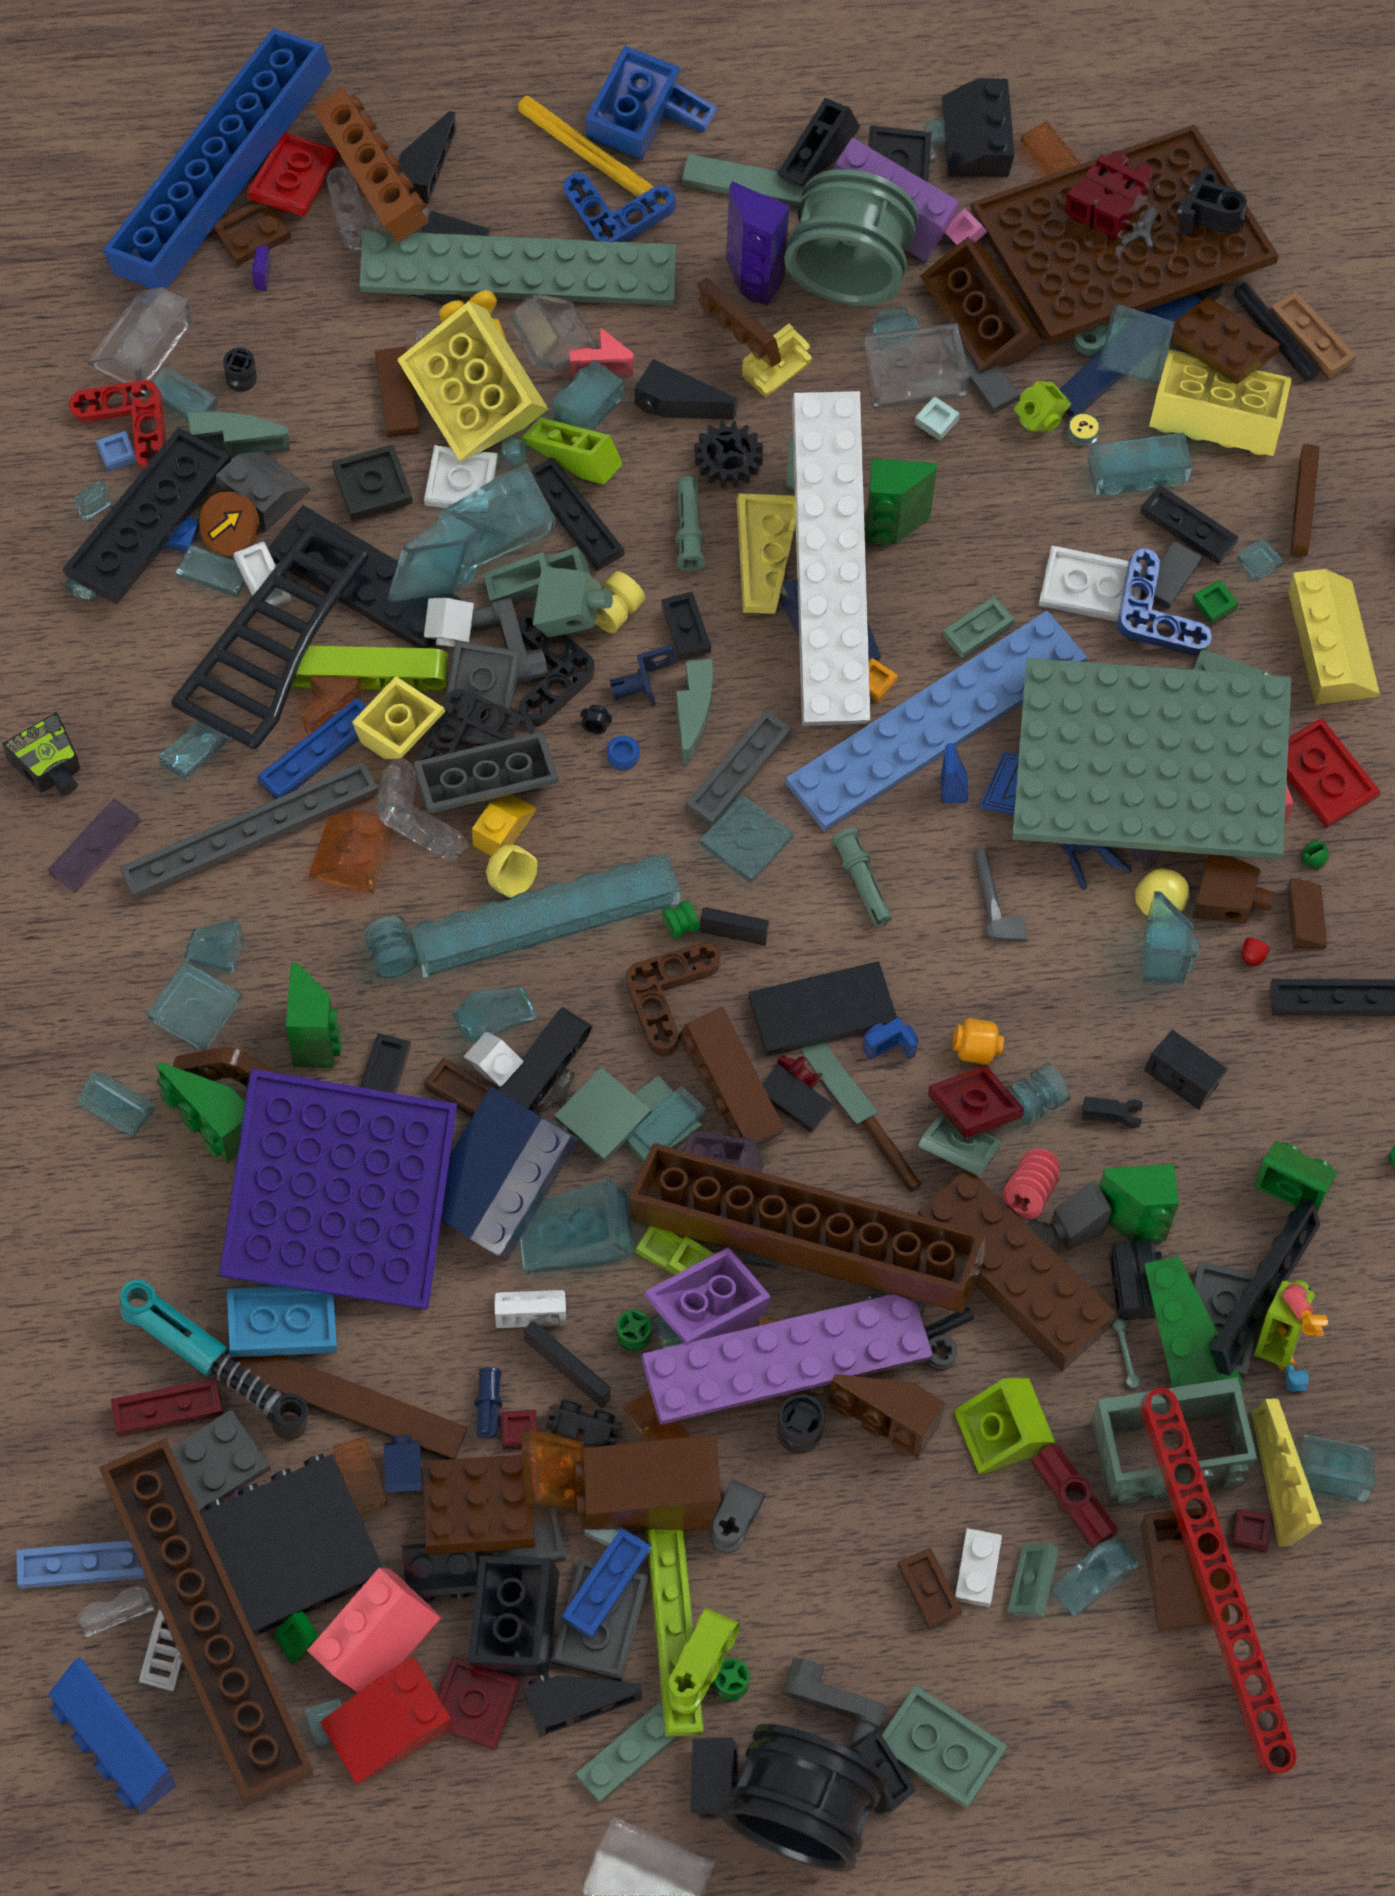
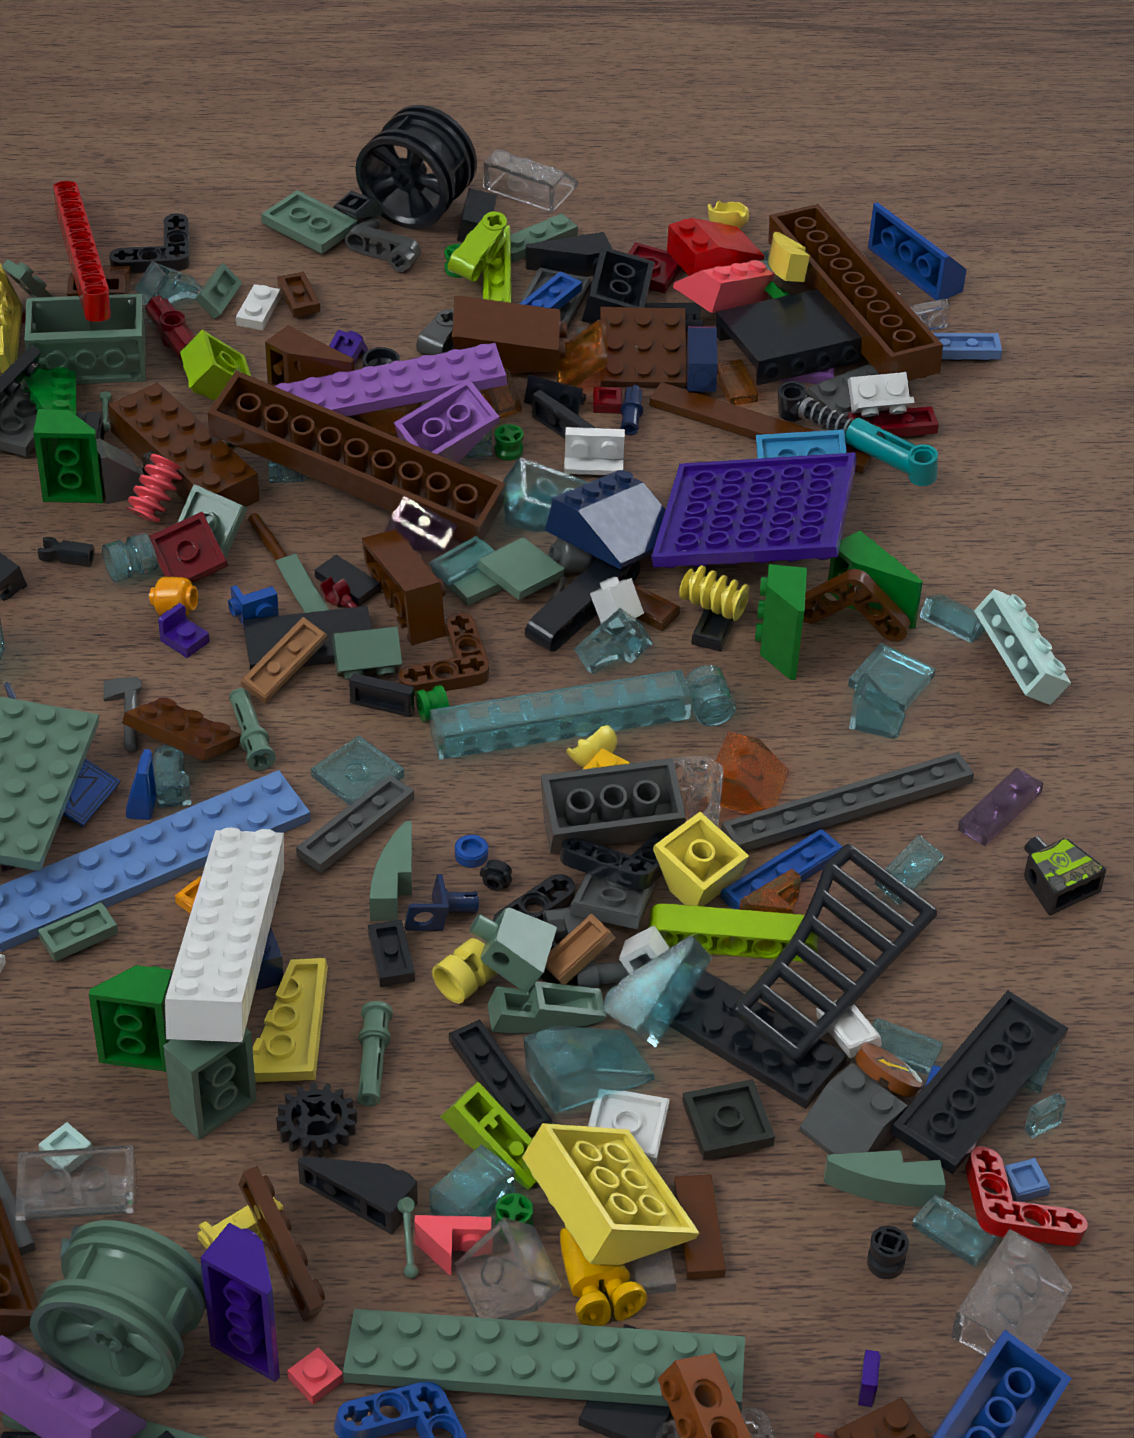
camera: 175 degrees left, 20 degrees down
(50, 1037) = (1022, 646): none -> light aqua brick
(180, 1413) = (879, 393): none -> white bracket
(294, 1669) = (788, 258): none -> light yellow slope
(368, 1809) = (729, 213): none -> light yellow hair
(381, 1075) = (713, 593): none -> light yellow piece
(509, 611) = (578, 949): none -> medium nougat tile
(548, 376) = (514, 1206): none -> green wheel
(641, 365) = (405, 1206): none -> sand green hinge
(697, 253) = (315, 1375): none -> coral plate
(757, 973) = (367, 651): none -> sand green brick
(843, 963) = (284, 660): none -> medium nougat tile
(851, 1480) = (349, 344): none -> dark purple bracket
(930, 859) = (182, 728): none -> reddish brown plate
(932, 807) = (170, 778): none -> clear light blue leg
(958, 1002) = (180, 632): none -> dark purple bracket
(1123, 1662) = (162, 255): none -> black beam
(1276, 1547) = (23, 277): none -> sand green plate

